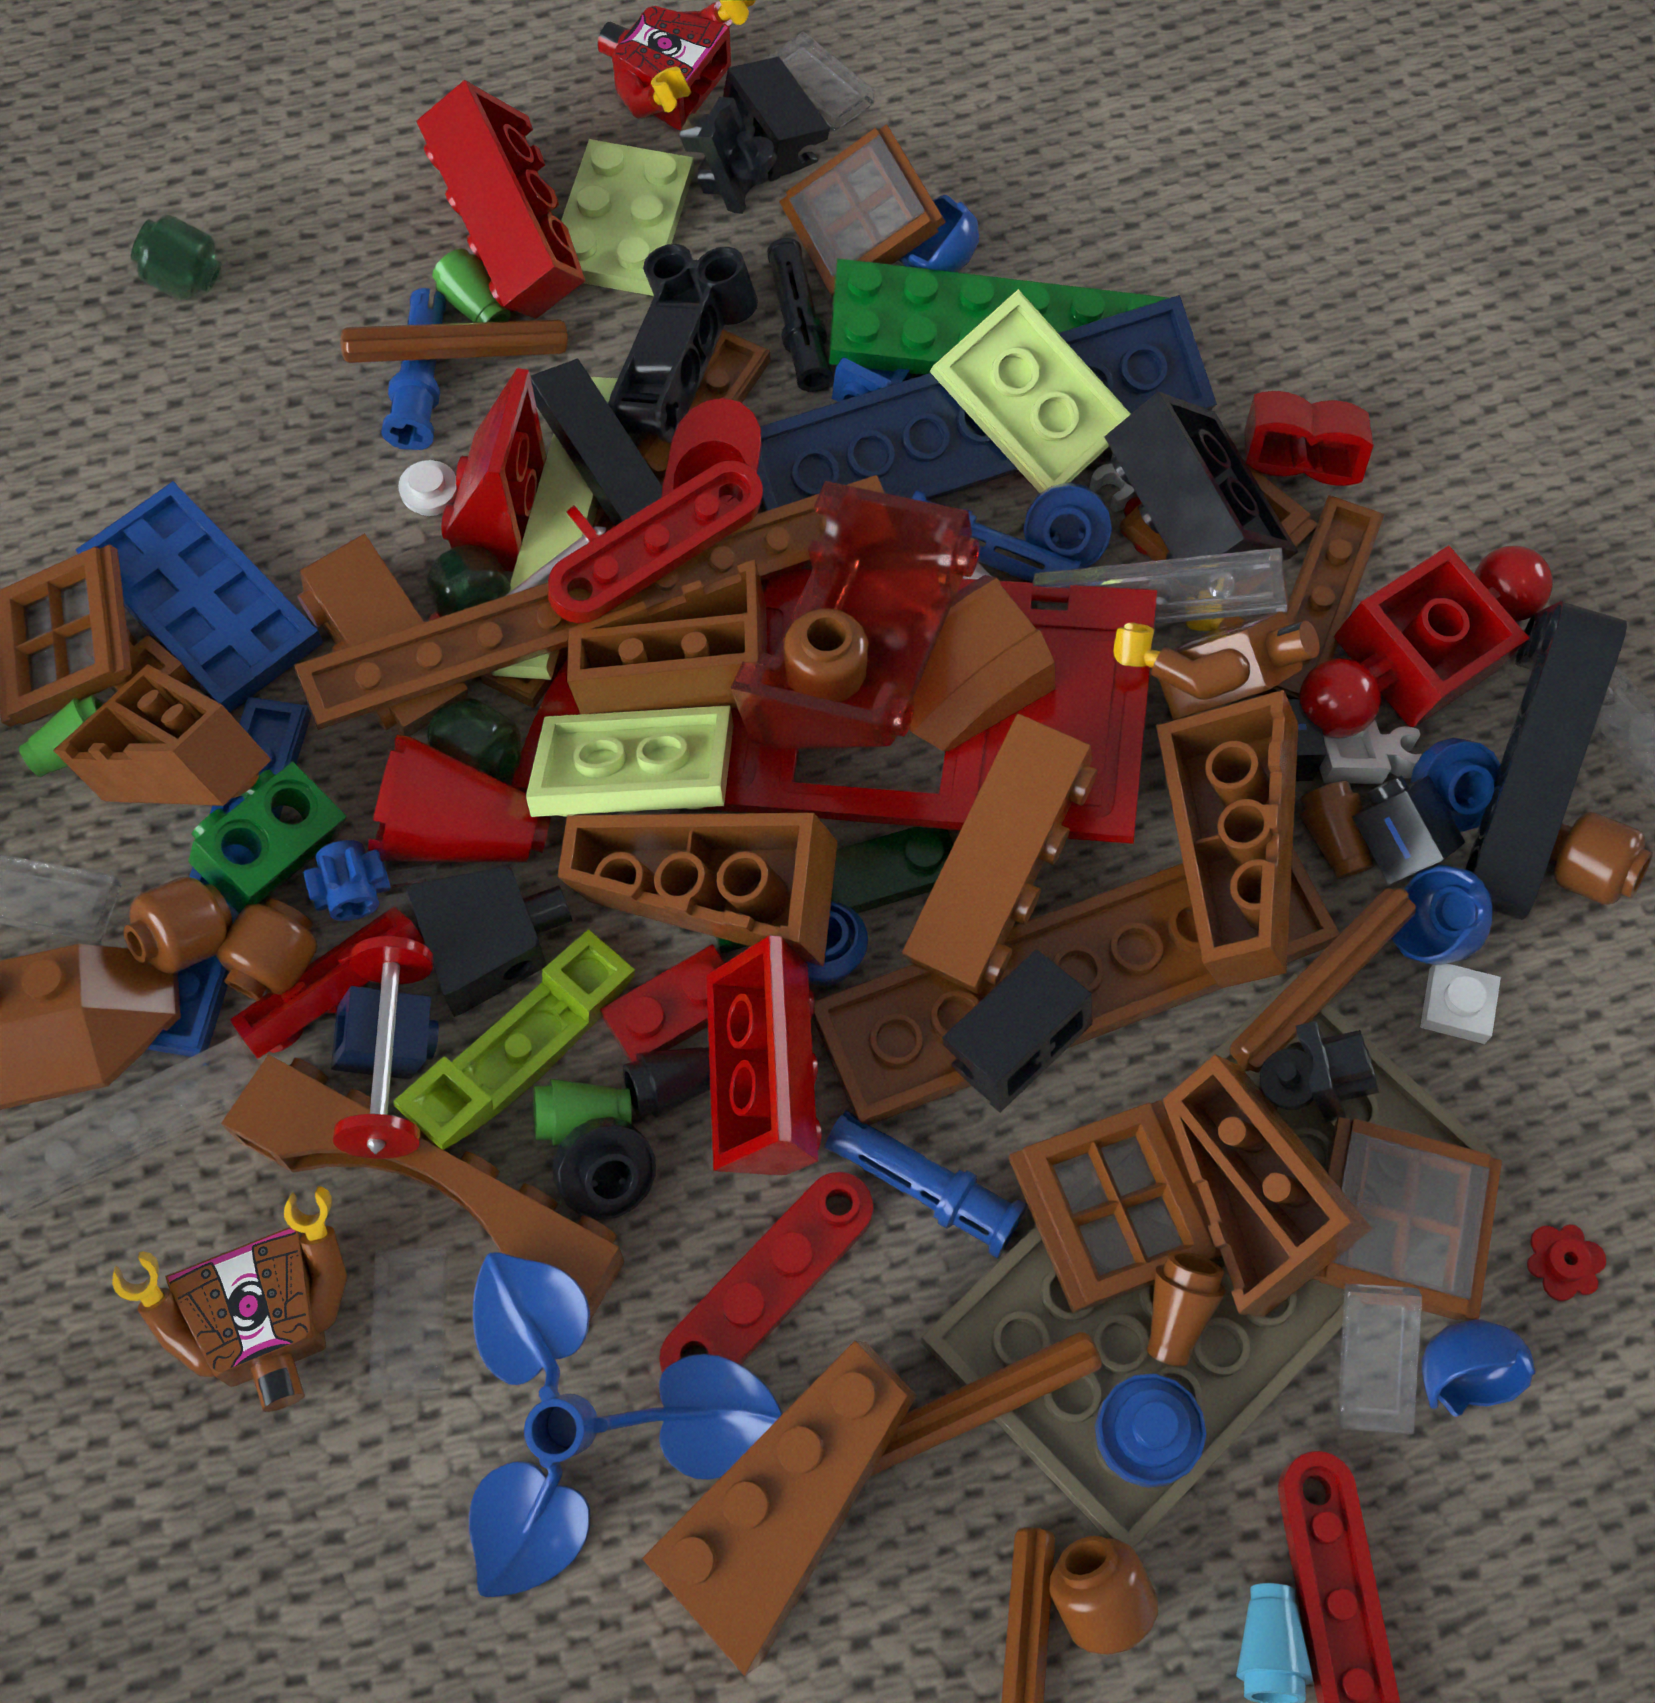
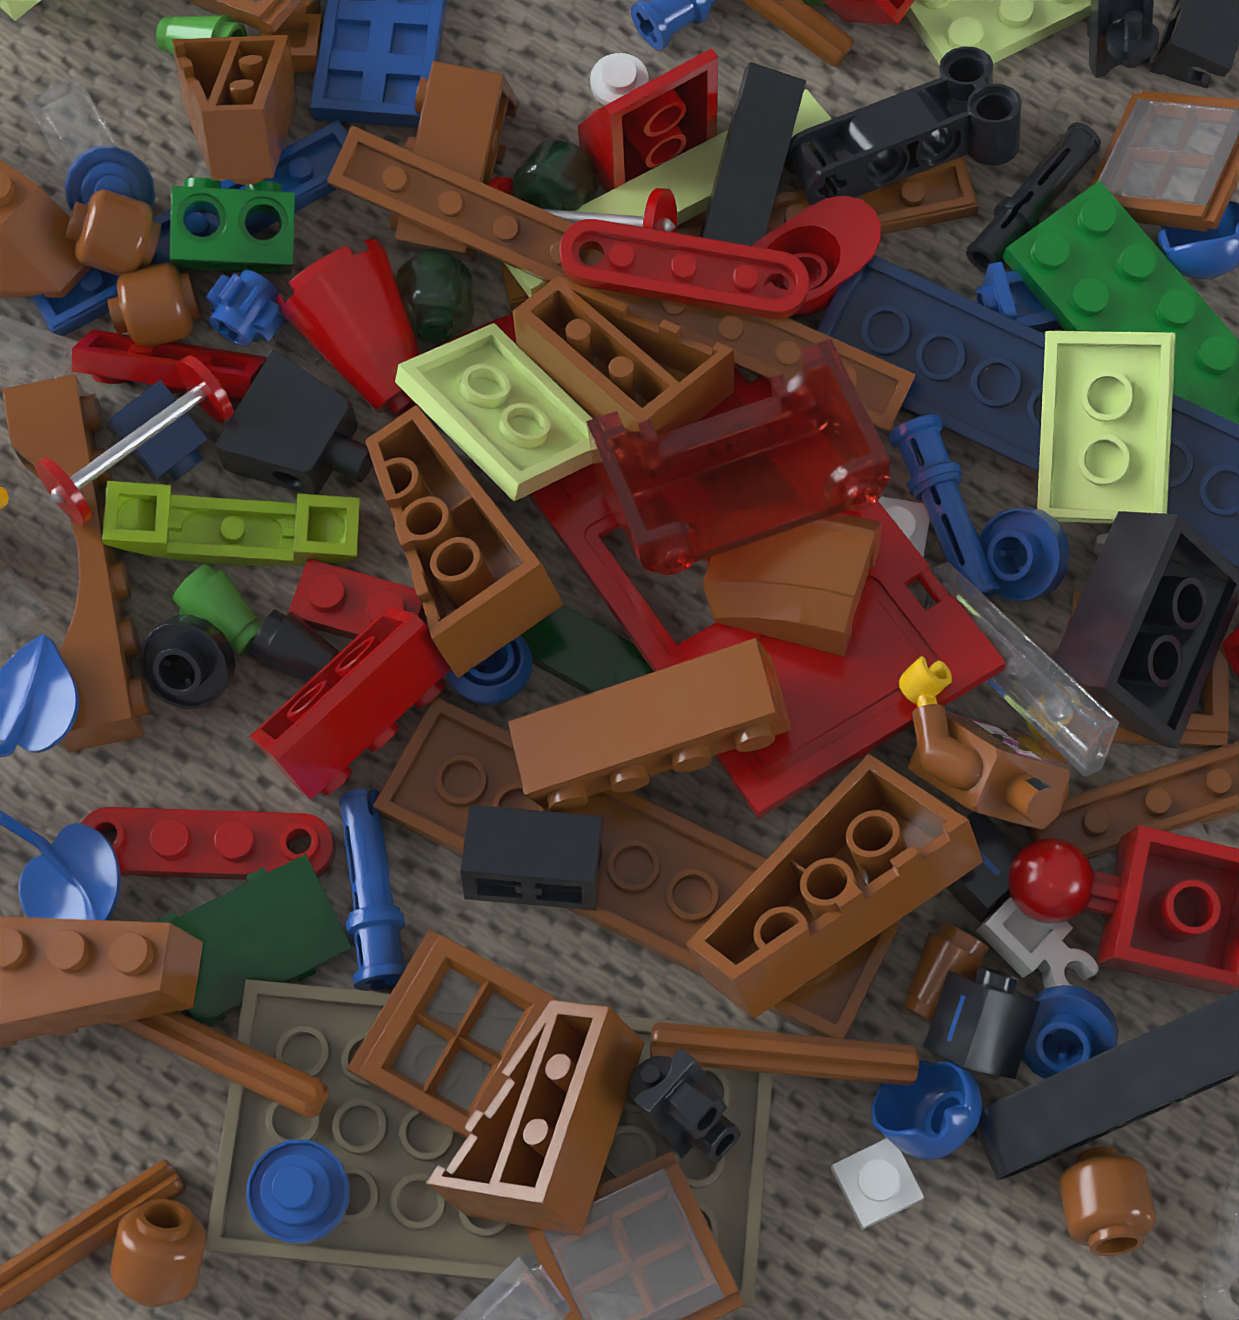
camera: 55 degrees right, 5 degrees up
(106, 898) = (110, 170): none -> blue plate
(826, 655) = (689, 466): dark orange head -> none
(889, 1294) = (260, 932): none -> dark green piece
(1183, 1303) = (410, 1140): dark orange cone -> none

